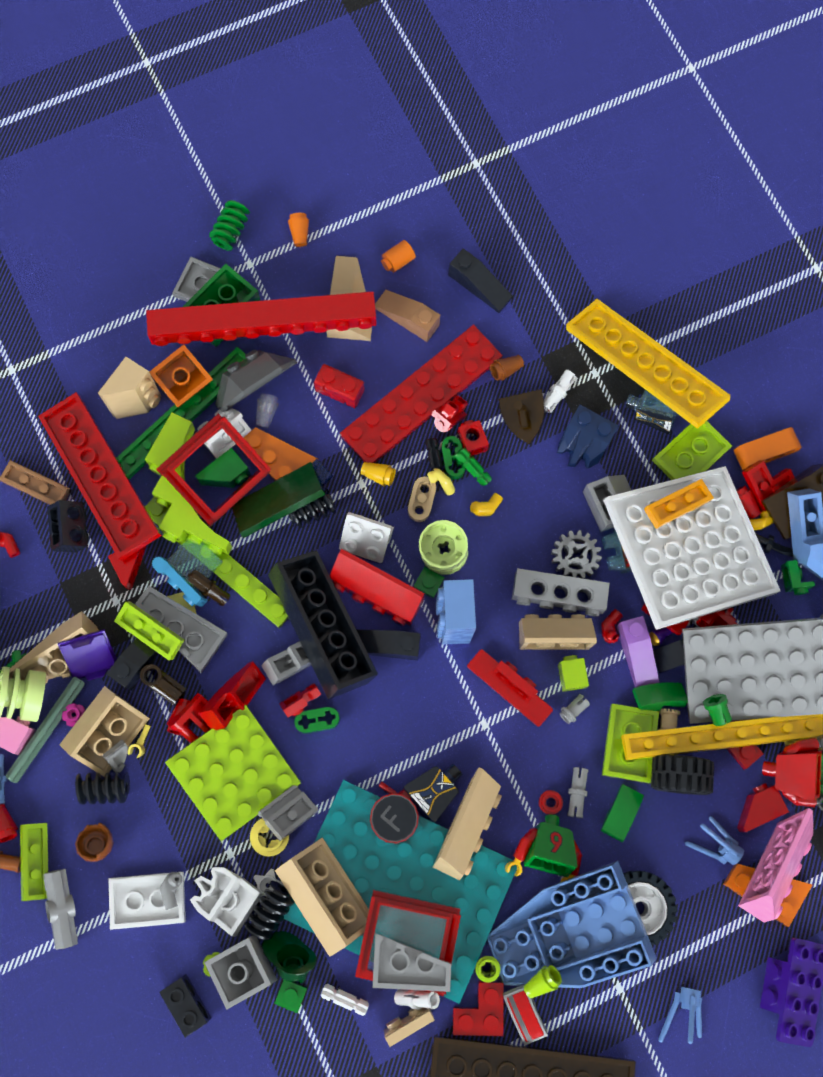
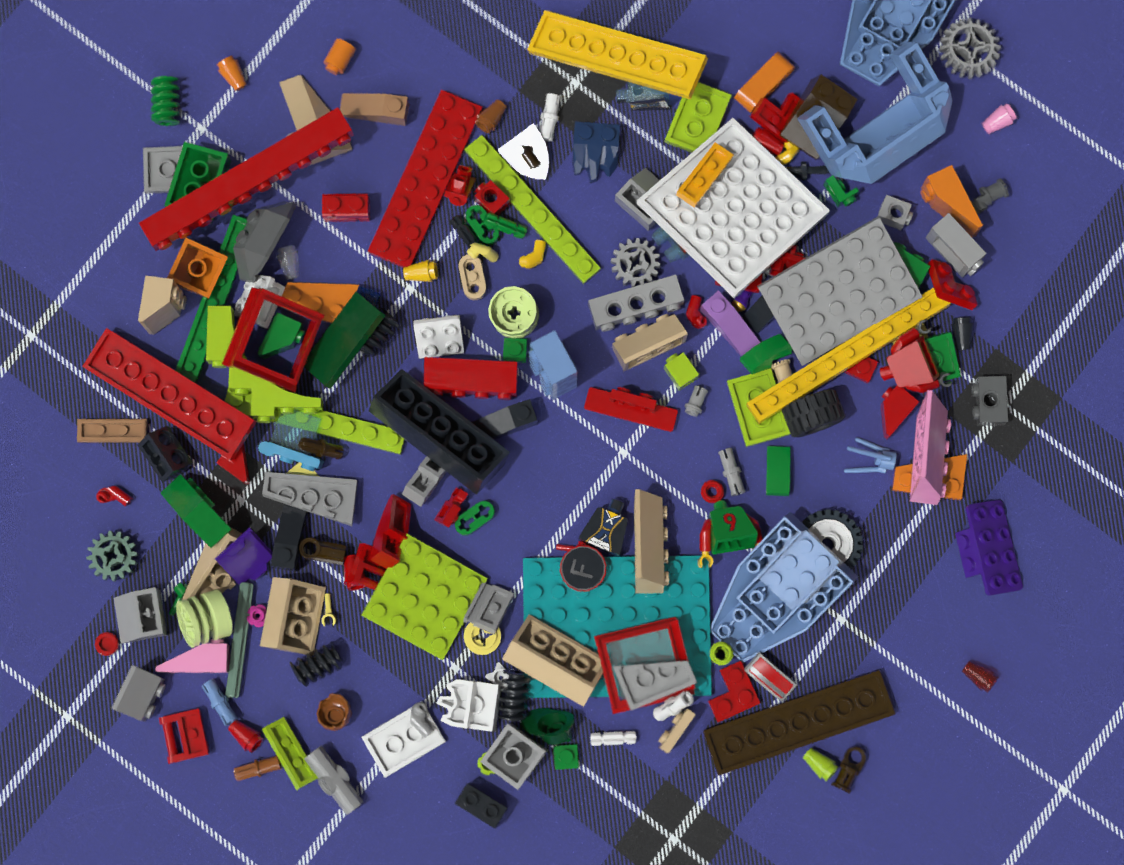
camera: 20 degrees left, 5 degrees up
(64, 590) = (195, 510): none -> green wedge
(116, 756) = (314, 632): light grey tile -> none
(149, 630) = (288, 510): lime plate -> none
(478, 280) = (426, 44): black slope -> none
(505, 466) = (532, 209): none -> lime plate
(544, 981) = (772, 640): lime cone -> none
(691, 1001) = (904, 600): medium blue plant -> none
(718, 709) = (818, 342): green bush -> none

